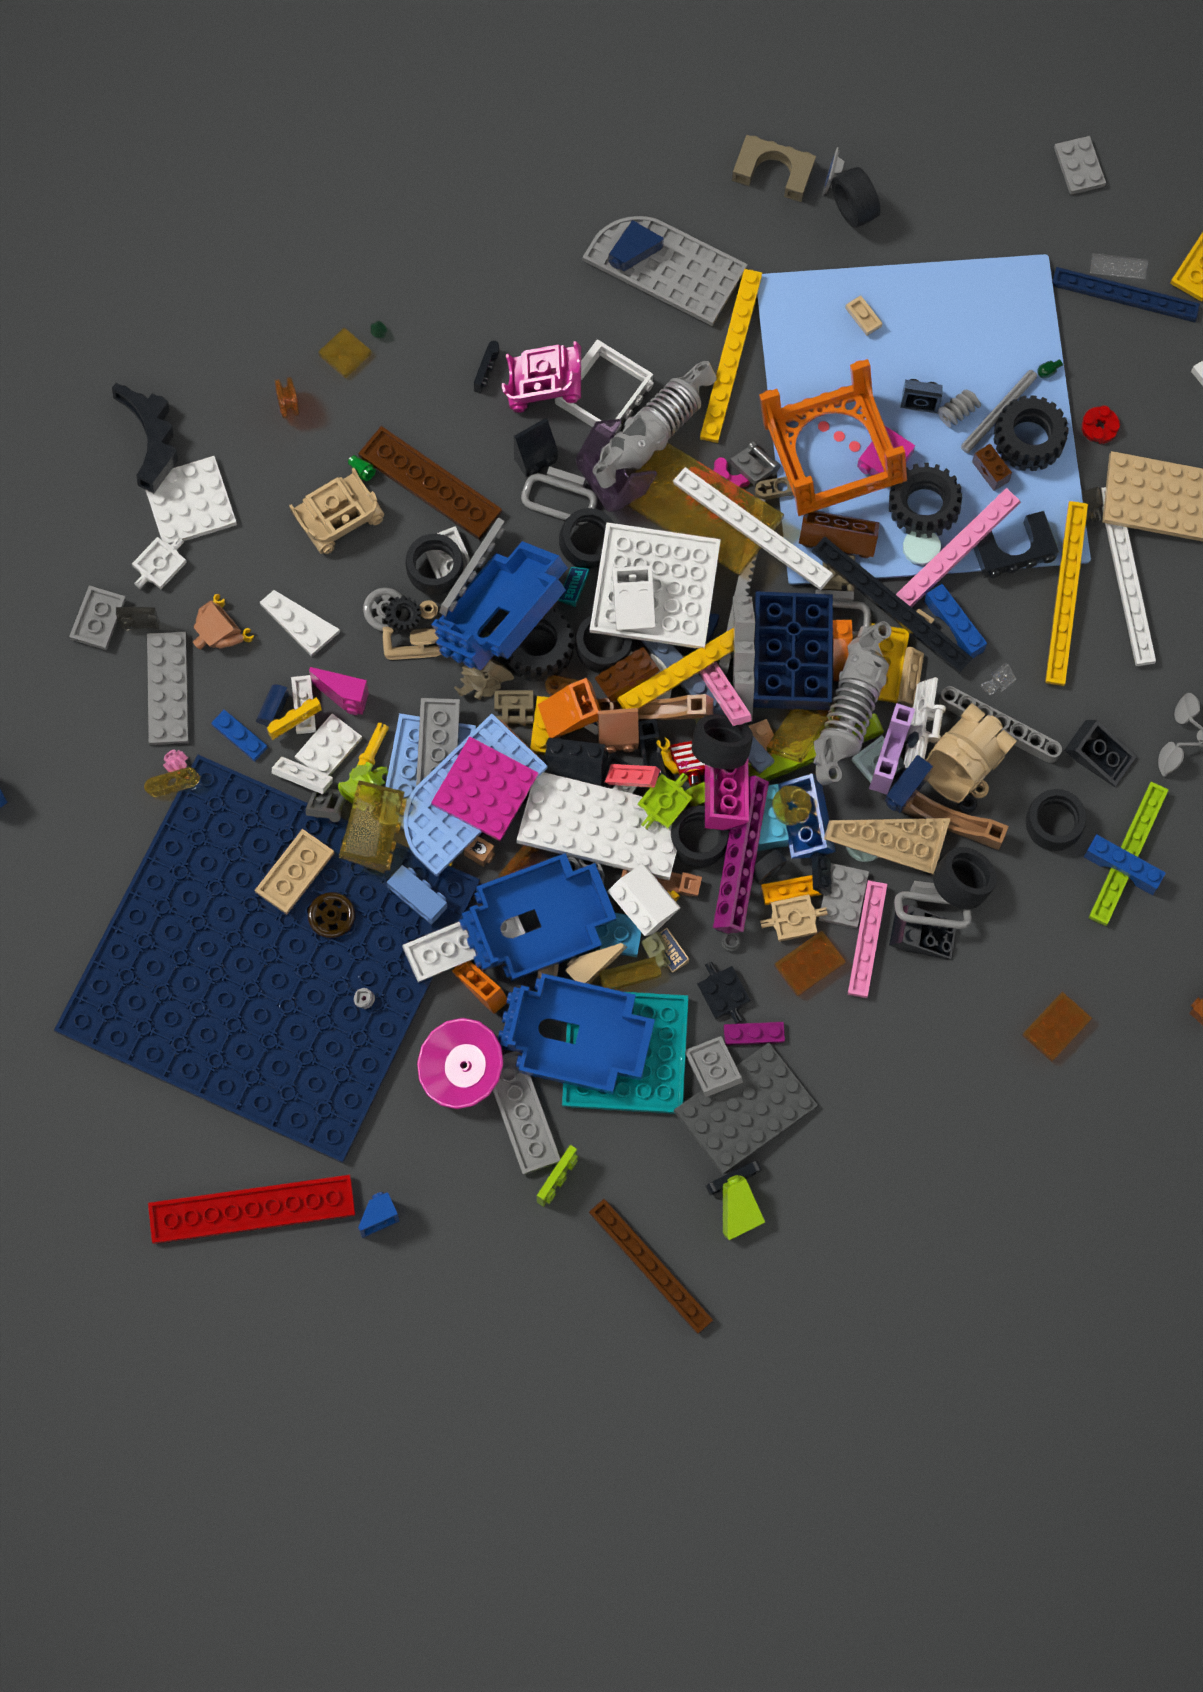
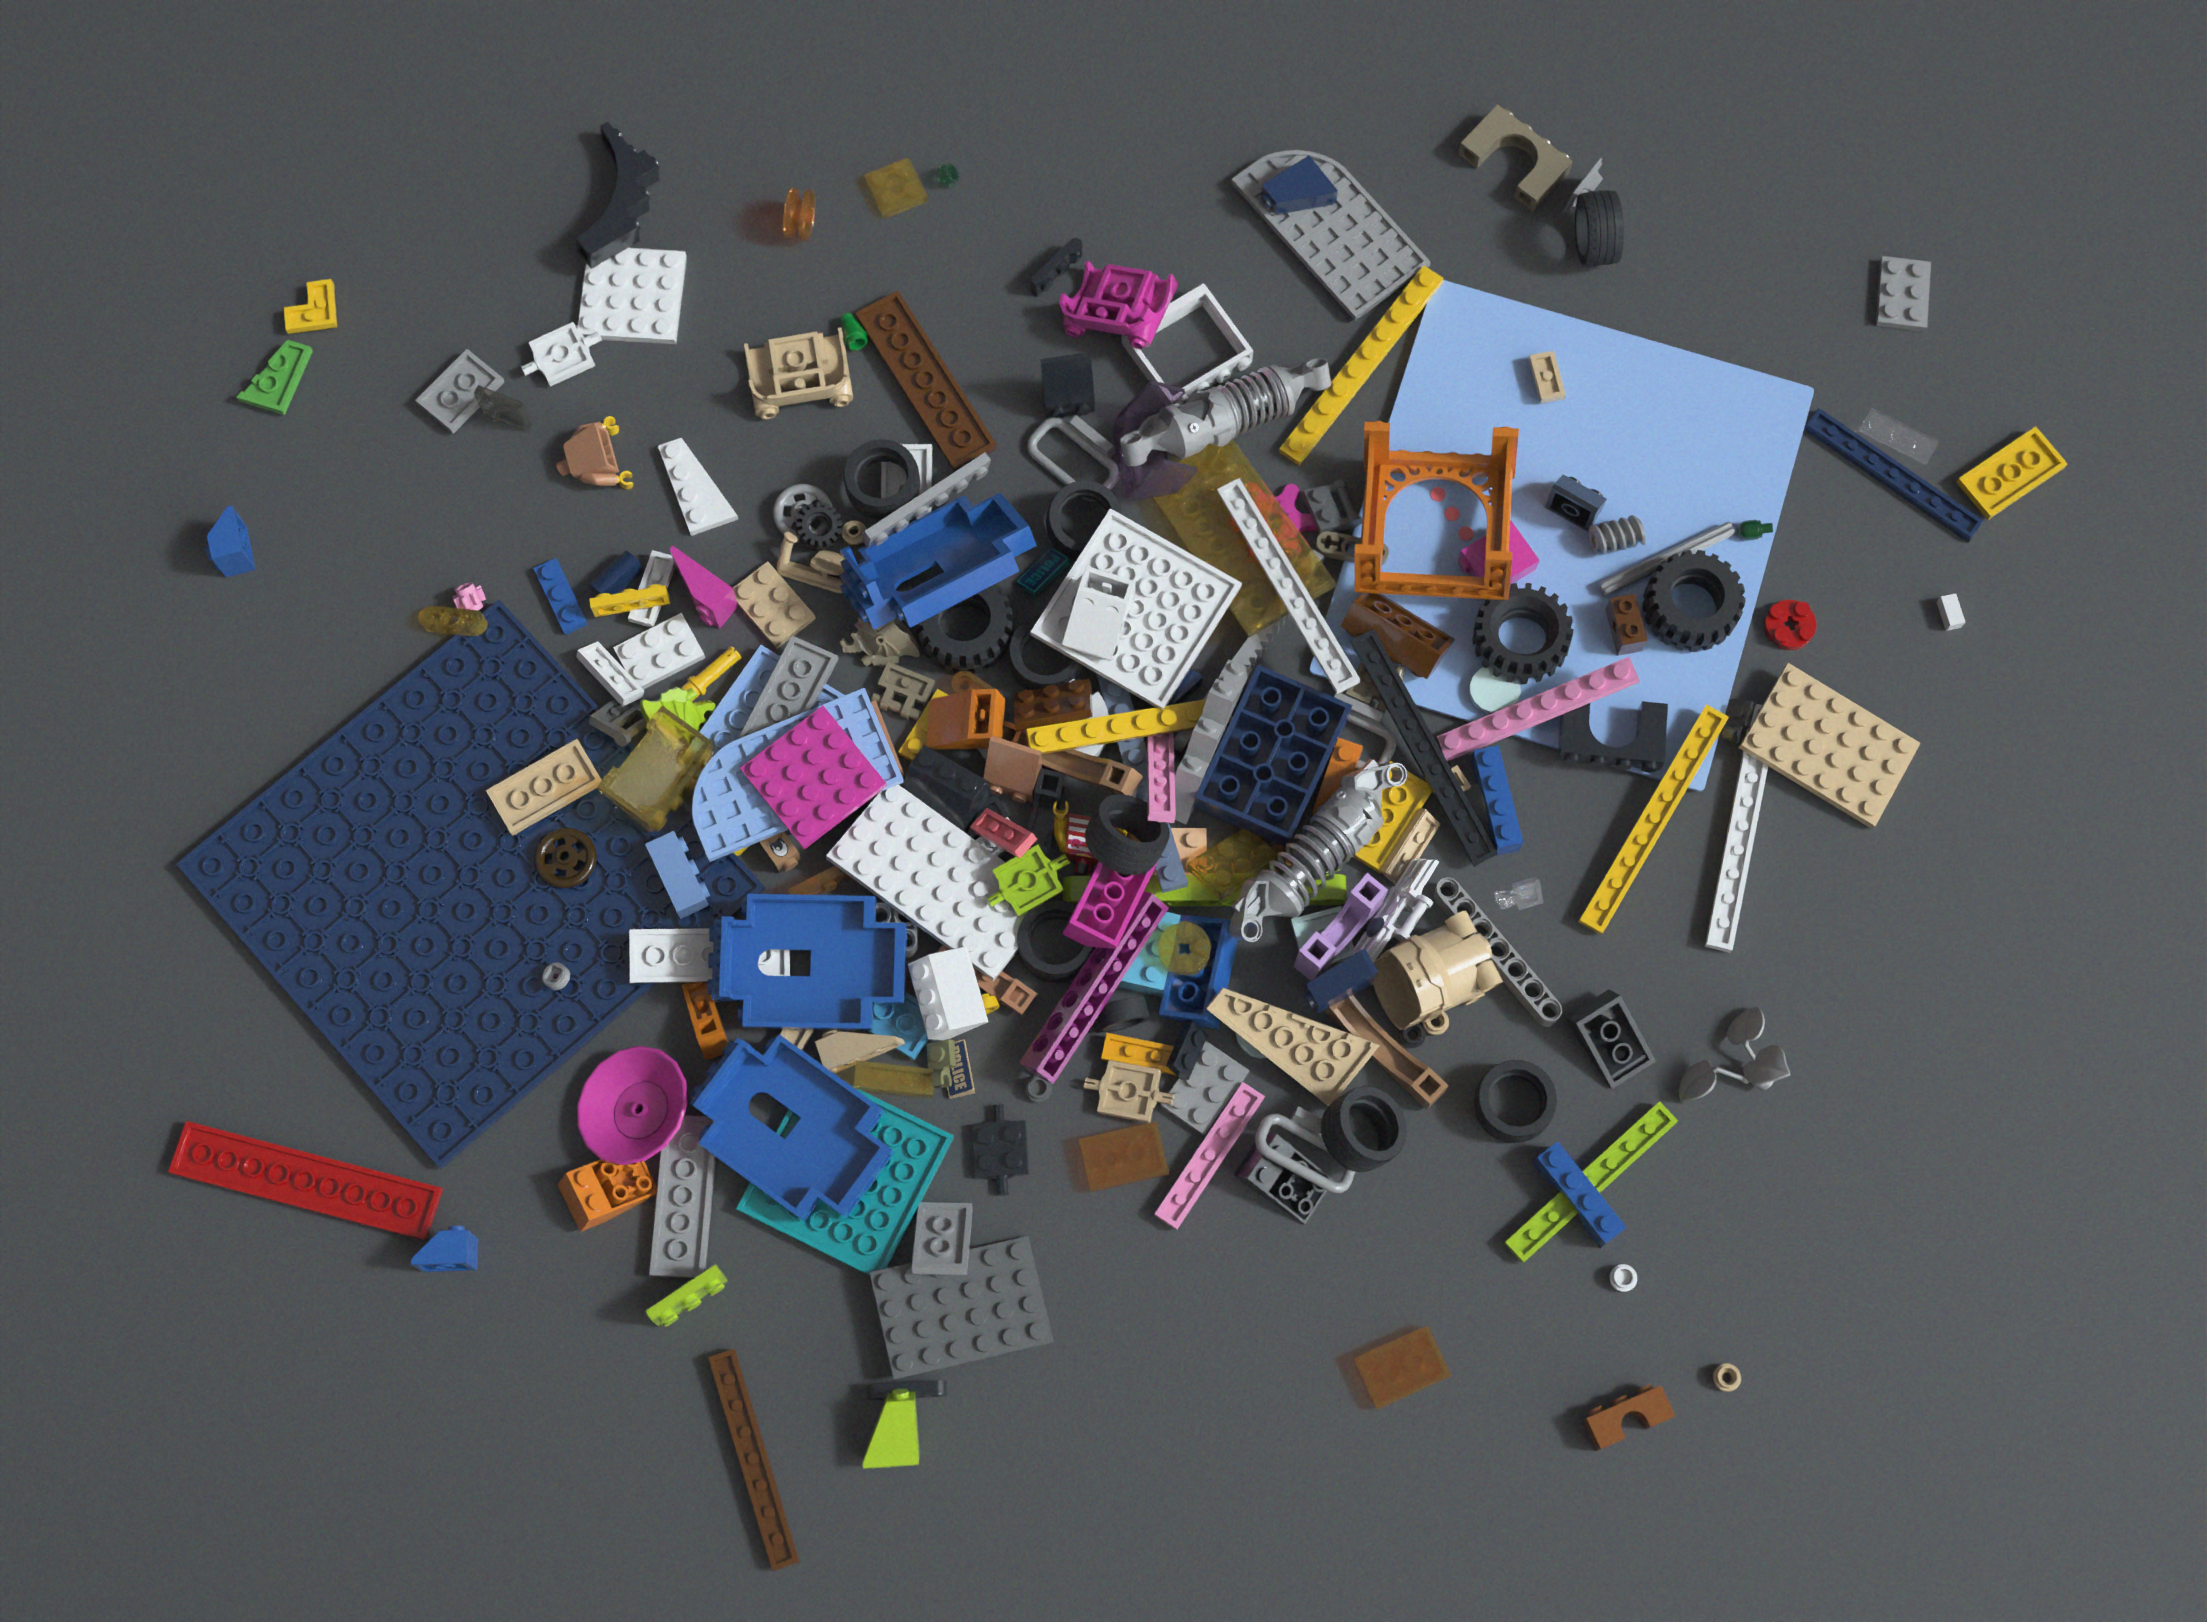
camera: 25 degrees right, 0 degrees up
(167, 688) = (503, 507): light grey plate -> none
(394, 683) = (772, 605): none -> tan plate
(465, 1130) = (605, 1191): none -> orange slope
(754, 1033) = (1015, 1217): magenta plate -> none
(1176, 908) = (1623, 1278): none -> white plate

